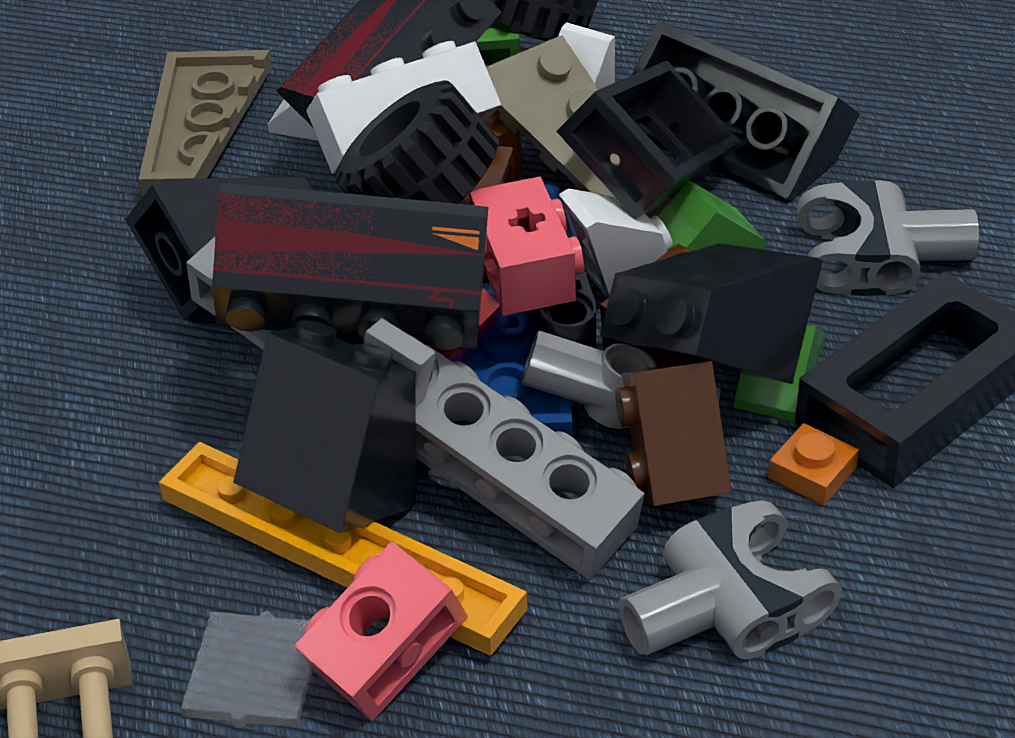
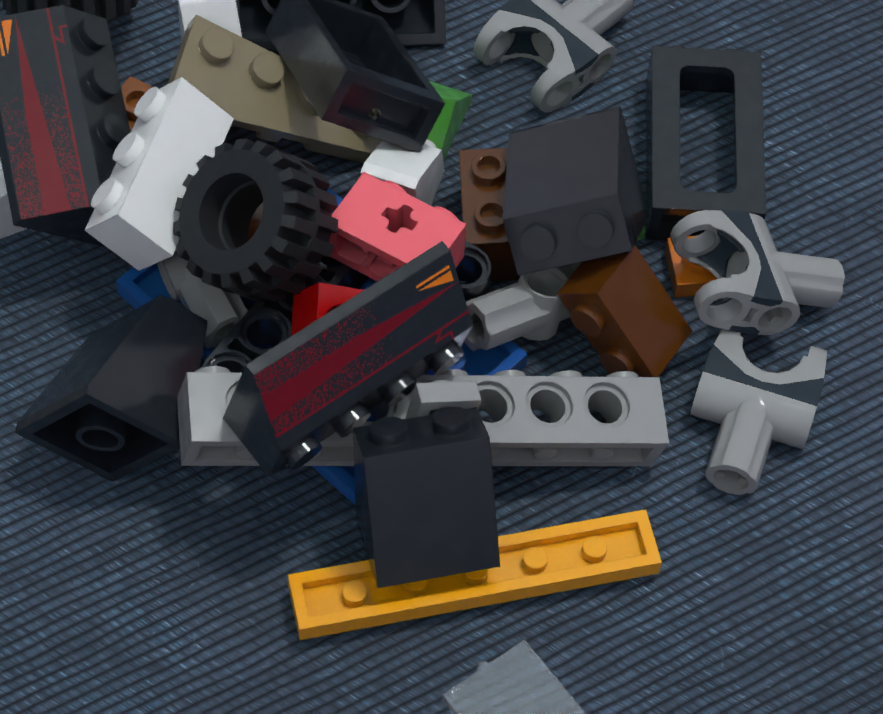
camera: 50 degrees left, 15 degrees up
(377, 667) = (617, 581): coral brick -> none
(829, 476) = (754, 278): none -> light grey connector

